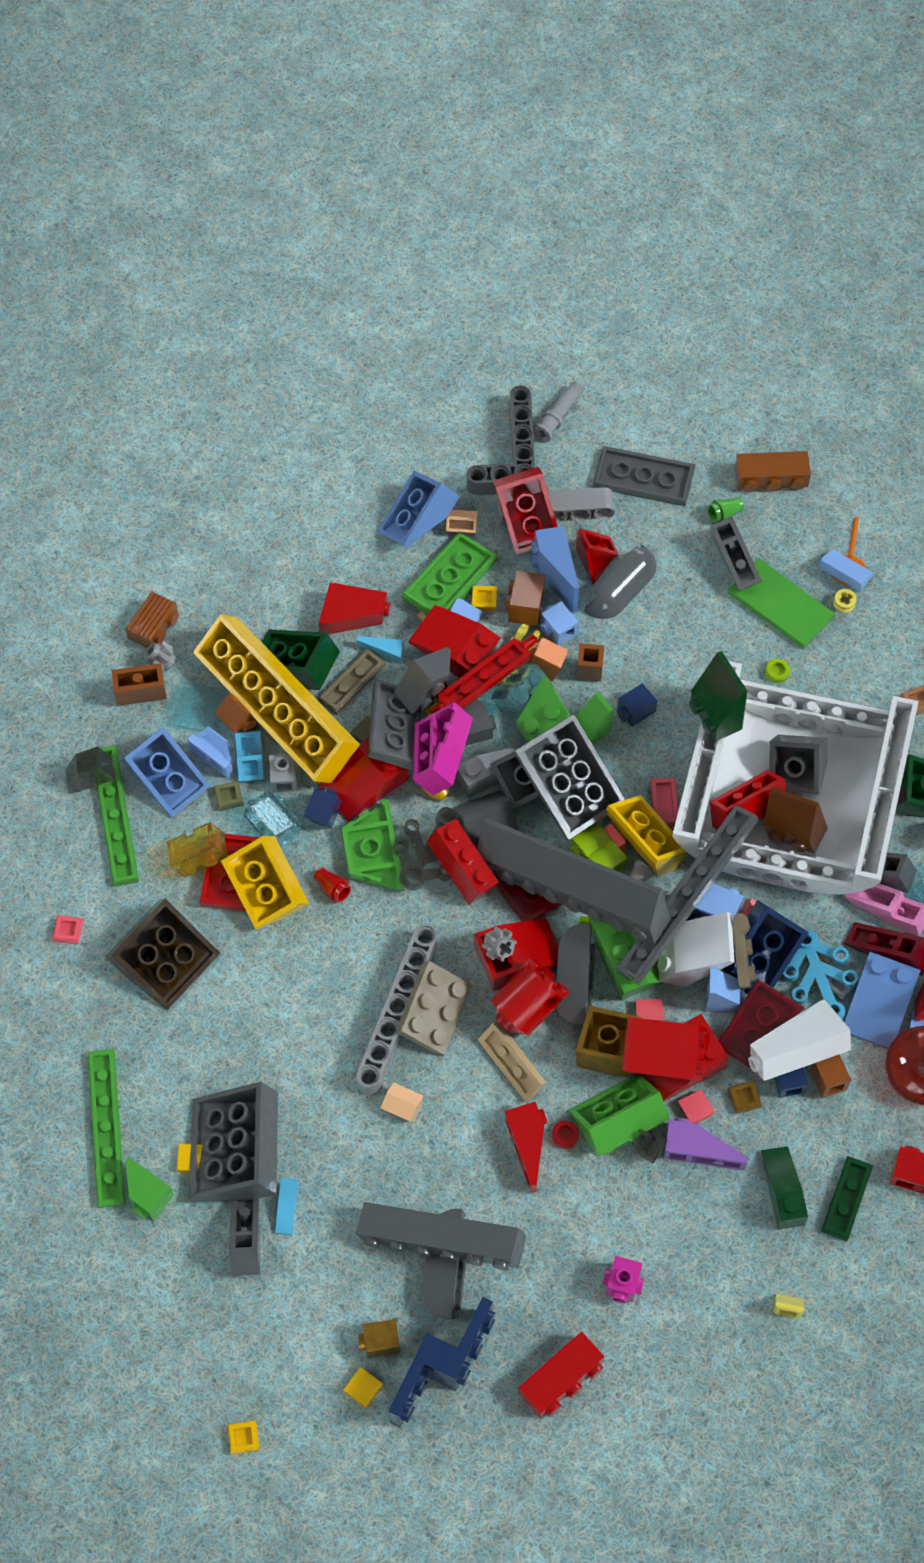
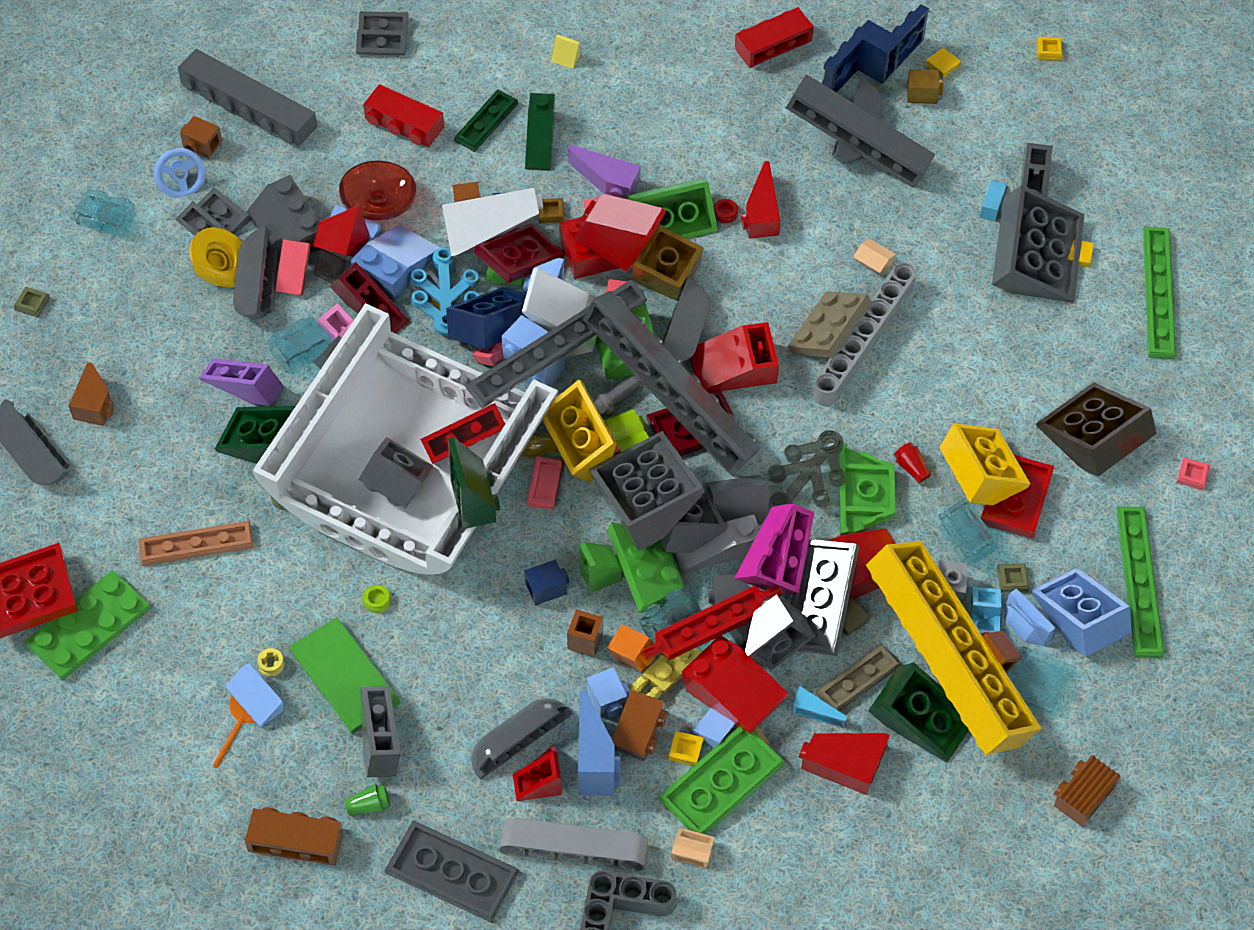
camera: 170 degrees left, 5 degrees down
(89, 770) = (1166, 617): clear smoke slope -> none
(139, 684) = (1106, 707): dark orange brick -> none
(146, 1191) = (1123, 228): bright green slope -> none
(160, 653) = (1080, 741): light grey gear -> none
(198, 850) = (1055, 507): clear yellow brick -> none
(323, 807) = (913, 528): dark blue brick -> none
(417, 509) = (745, 861): medium blue slope -> none
(462, 861) = (775, 444): red brick -> none
(499, 944) = (757, 337): light grey gear -> none
(512, 1061) = (762, 272): tan plate -> none
(525, 506) = (614, 823): red slope -> none
(528, 998) = (736, 301): red cylinder -> none
(623, 1270) = (703, 87): dark pink brick -> none
(651, 1147) = (651, 177): clear smoke tile -> none
(743, 948) = (518, 291): dark tan hinge -> none
(794, 821) = (422, 402): reddish brown slope -> none

